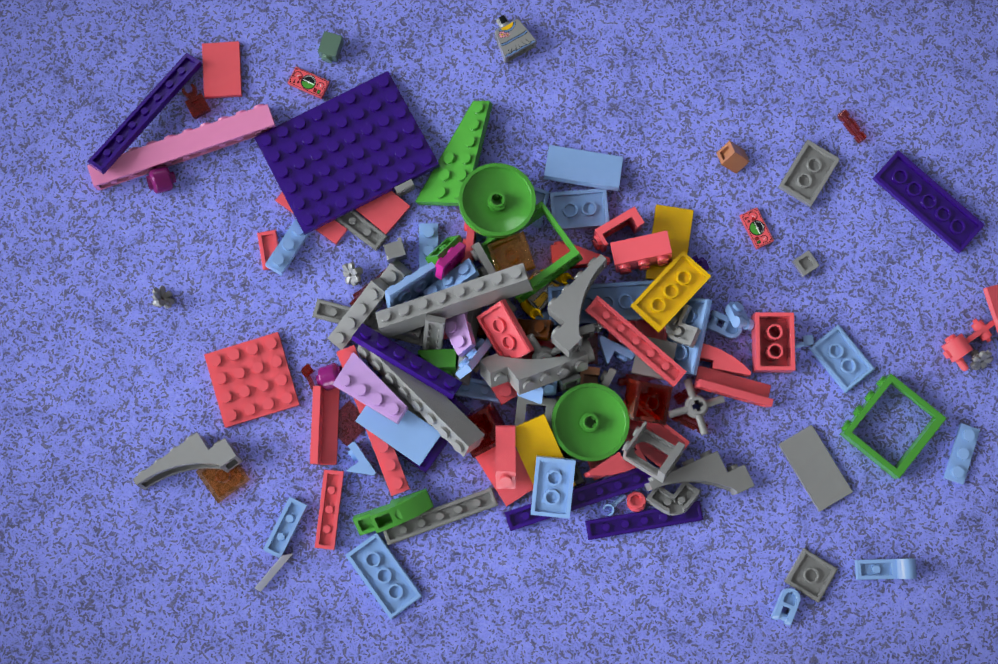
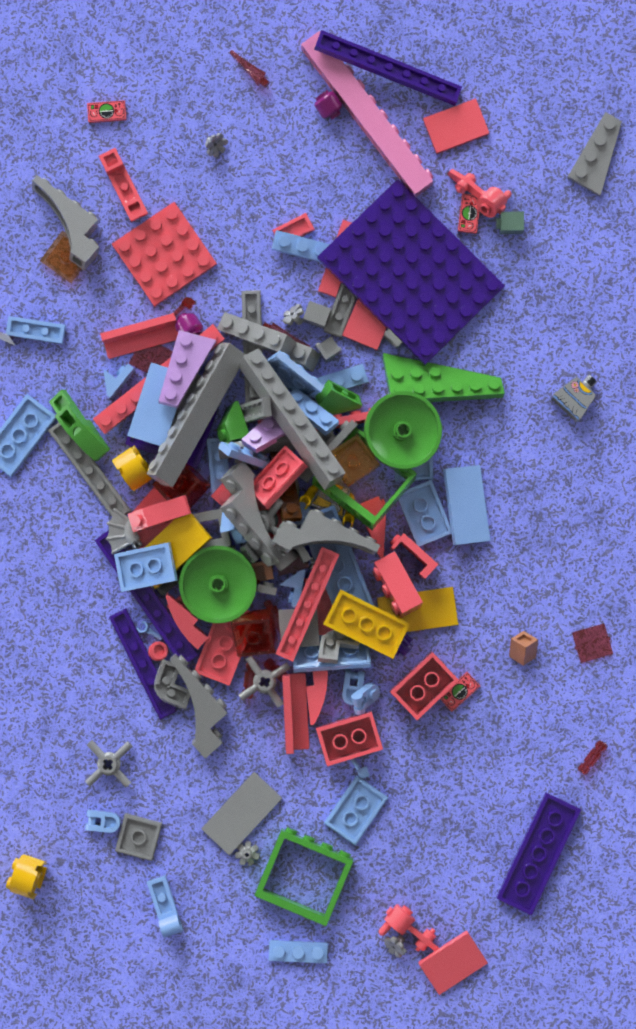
camera: 75 degrees right, 5 degrees up
(93, 393) = (106, 111): none -> coral tile
(106, 239) = (255, 73): none -> piece
(171, 398) = (123, 185): none -> coral slope
(196, 104) = (414, 113): clear red plate -> none
(304, 58) = (489, 201): none -> coral piece
(329, 509) = (64, 365): coral plate -> none
(359, 251) = (316, 314): none -> light grey panel
(406, 361) = (221, 392): dark purple plate -> none
(450, 260) = (331, 404): dark pink plate -> none
(452, 470) = (132, 468): none -> yellow brick
(511, 501) = (121, 533): none -> light grey arm
(642, 434) = (221, 640): light grey panel -> none
(724, 586) = (115, 757): none -> light grey bar
(743, 257) = (424, 685): none -> coral brick
(745, 94) = (592, 643): none -> piece
(805, 263) = (438, 749): light grey plate -> none
(808, 173) = (530, 727): light grey plate -> none
(855, 474) = (251, 850): none -> light grey plant

